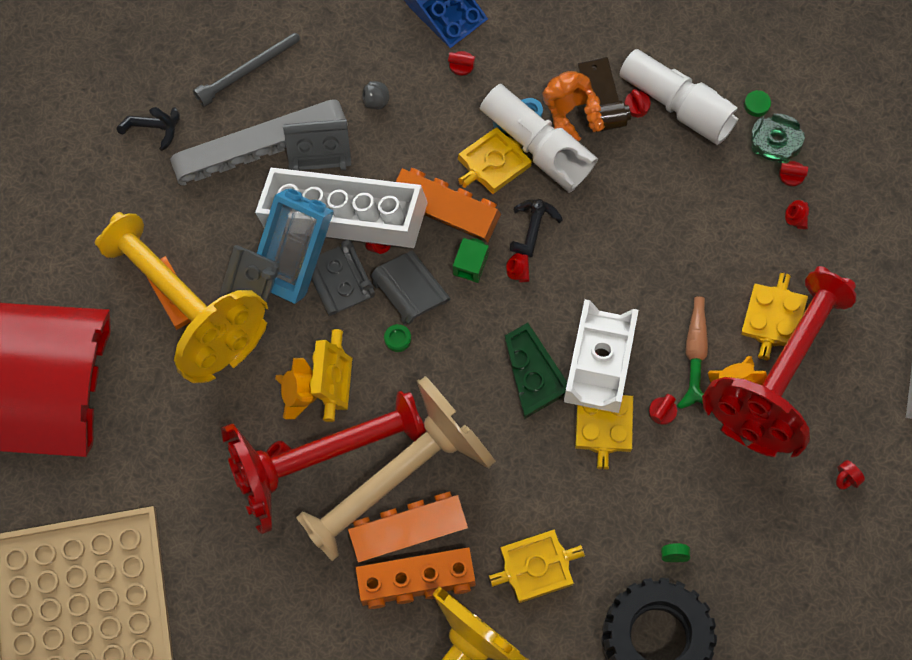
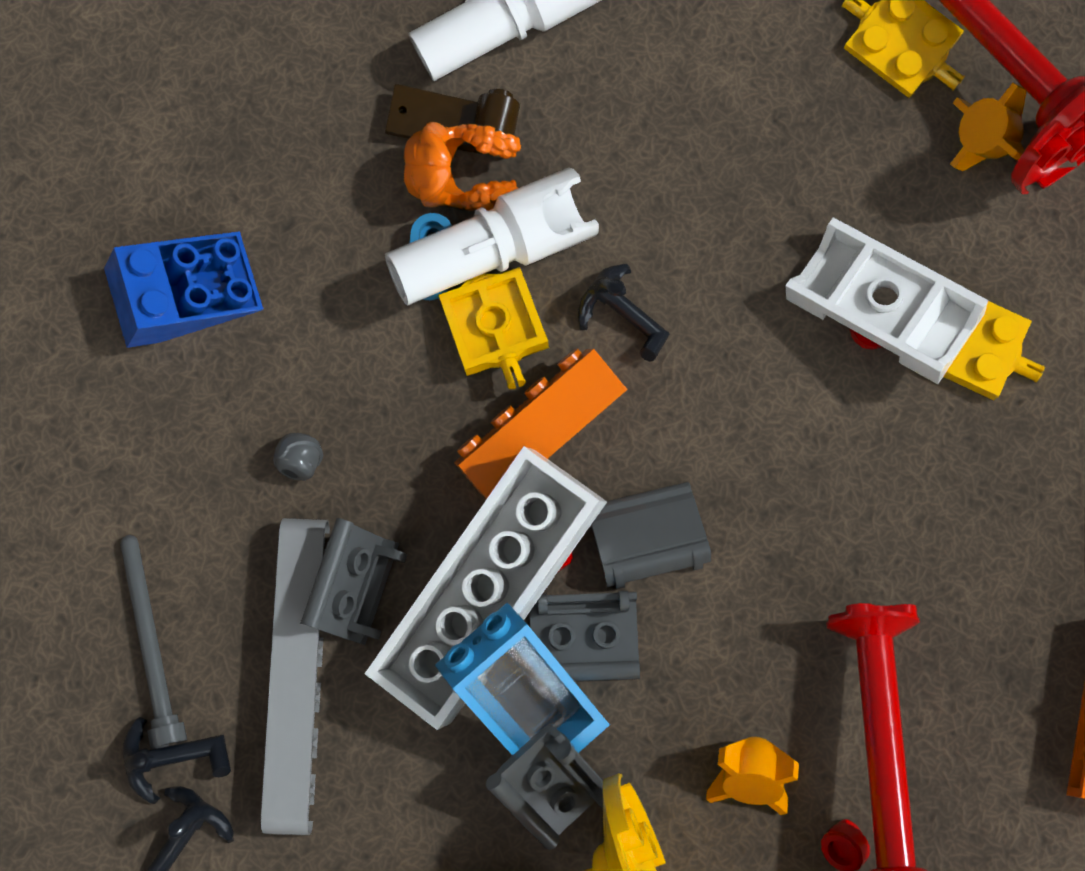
camera: 70 degrees left, 10 degrees up
(183, 86) = (143, 760): none -> black piece
(331, 375) = (760, 715): yellow plate -> none
(397, 338) = (721, 587): green tile -> none
(407, 528) = (1040, 694): orange brick -> none
(441, 434) = (940, 578): tan piece -> none
(461, 62) = (300, 301): red plate -> none
(471, 259) = (643, 424): green brick -> none
(518, 267) = (682, 361): red plate -> none
(534, 371) = (858, 407): dark green wing -> none
(638, 103) = (487, 74): red tile -> none
(663, 410) = (986, 253): red plate -> none
(696, 352) = (918, 168): nougat piece -> none

